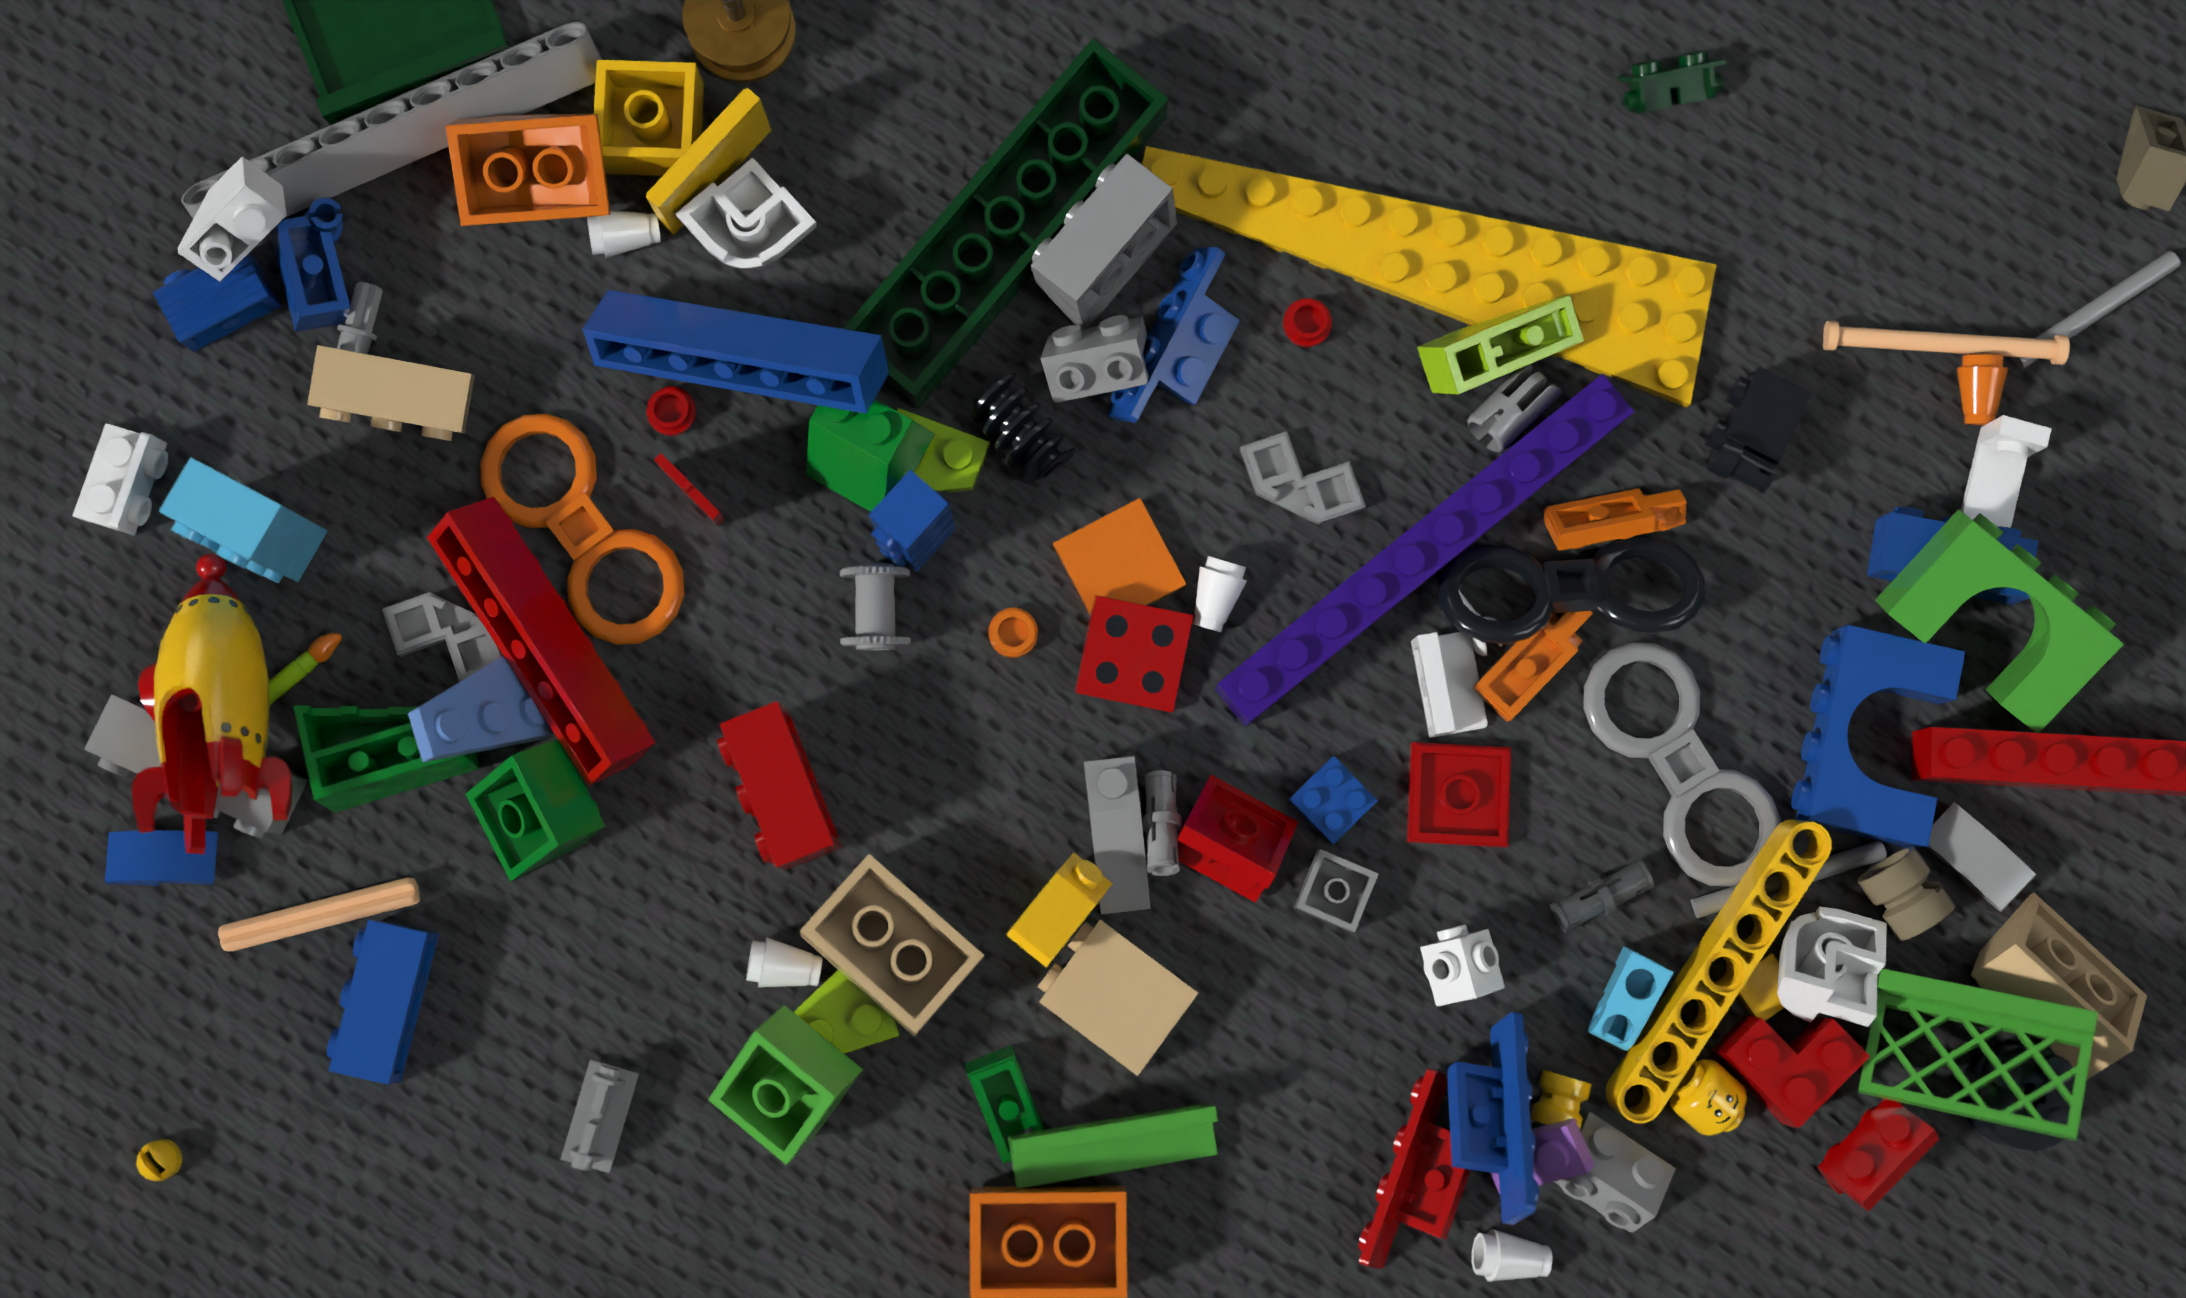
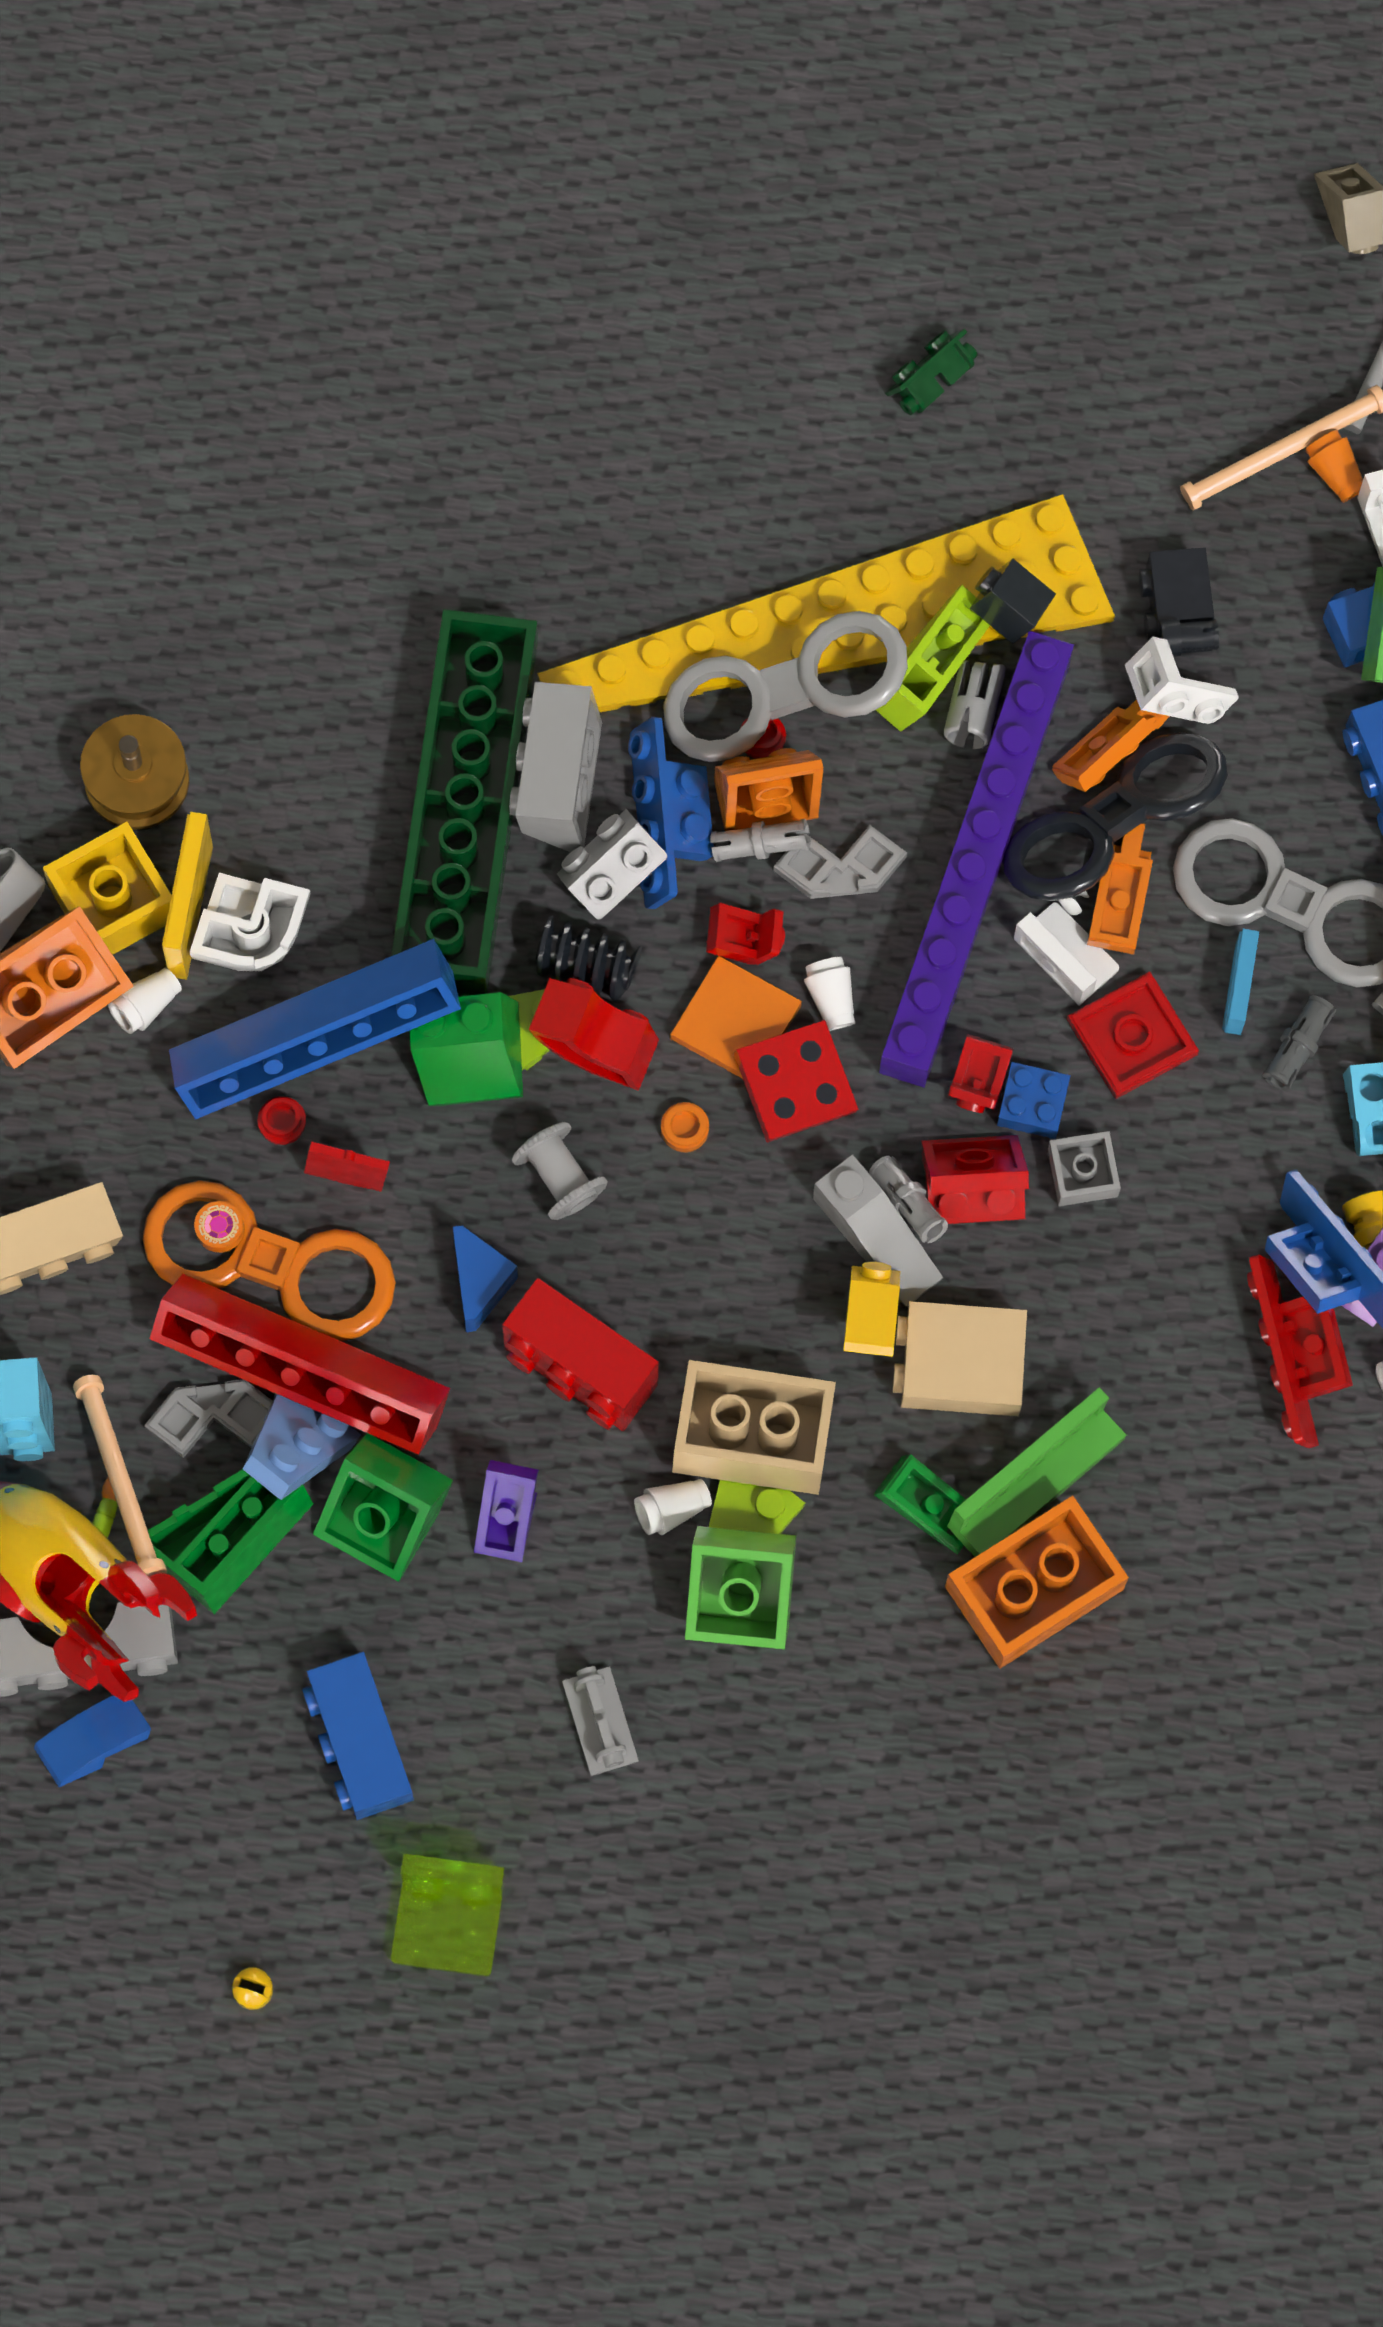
camera: 30 degrees left, 10 degrees down
(319, 914) = (255, 1705): light nougat axle -> none
(355, 548) = (89, 1391): none -> light nougat bar
(358, 1206) = (448, 1915): none -> clear neon green bracket
(553, 473) = (219, 1226): none -> tile
(634, 882) = (506, 1510): none -> slope
(746, 659) = (482, 1276): none -> blue slope
(911, 522) = (551, 1075): blue brick -> none
(983, 501) = (594, 1033): none -> red brick
(1174, 493) = (745, 934): none -> red bracket
(1243, 417) = (760, 840): none -> light grey pin
(1277, 374) = (769, 788): none -> orange slope
(1298, 749) = (980, 1074): none -> red bracket
(1352, 292) = (785, 686): none -> light grey bar
(1461, 965) = (1223, 1162): white brick -> none
(1585, 808) = (1240, 981): none -> dark azure tile
(1605, 336) = (1011, 600): none -> black brick
(1687, 502) = (1165, 692): none -> white bracket

